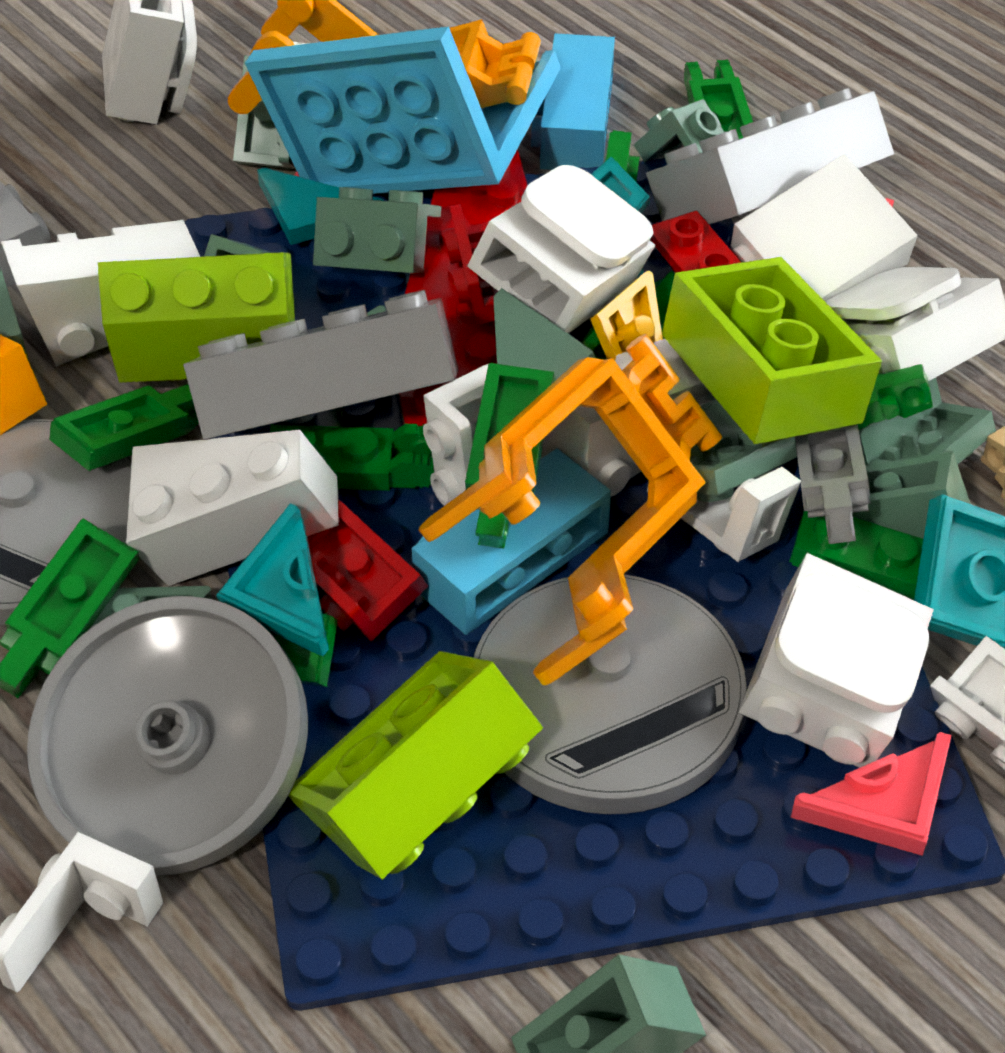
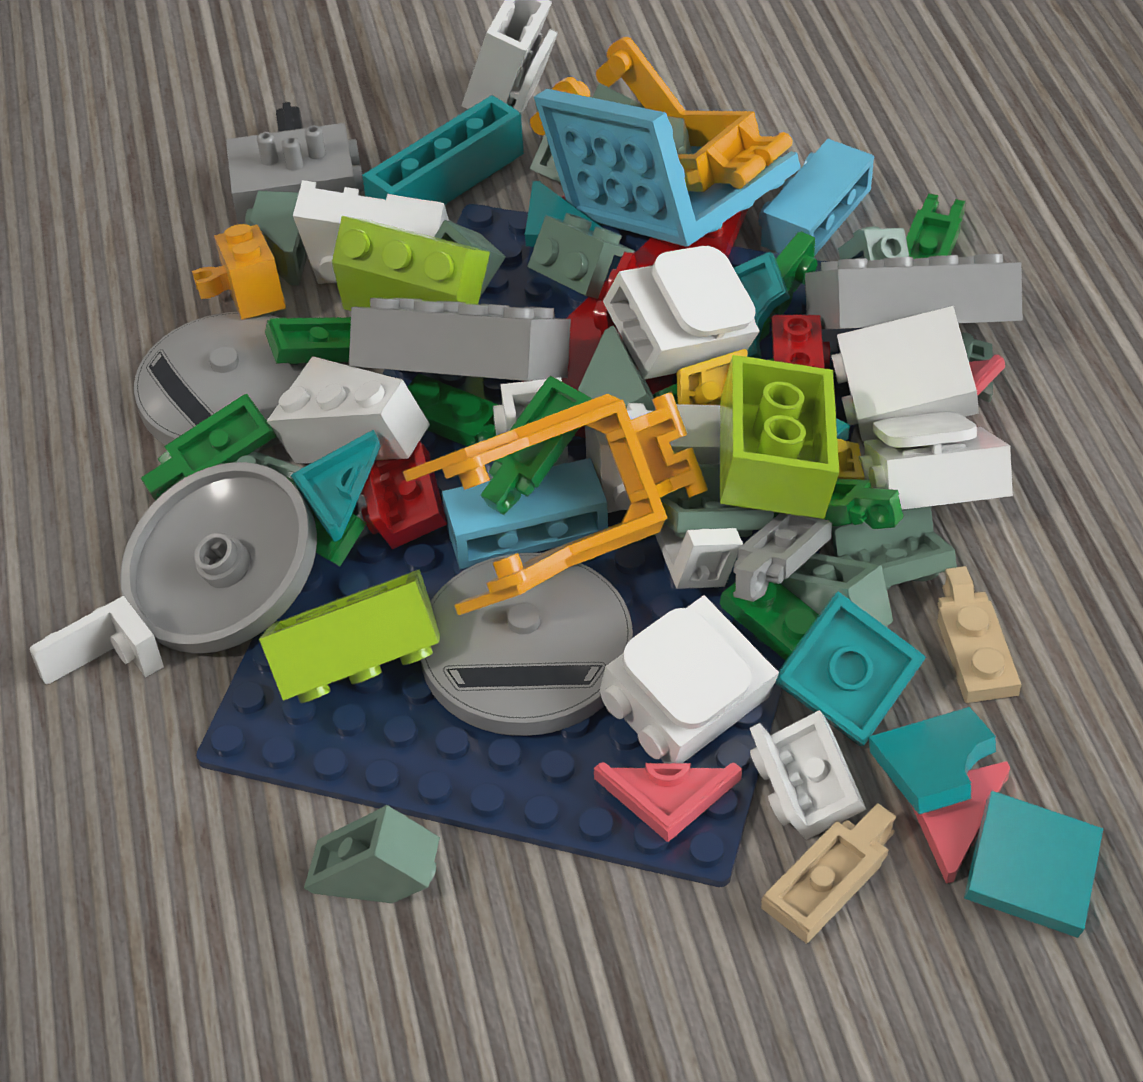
camera: 30 degrees right, 0 degrees up
(144, 166) = (452, 155): none -> teal brick

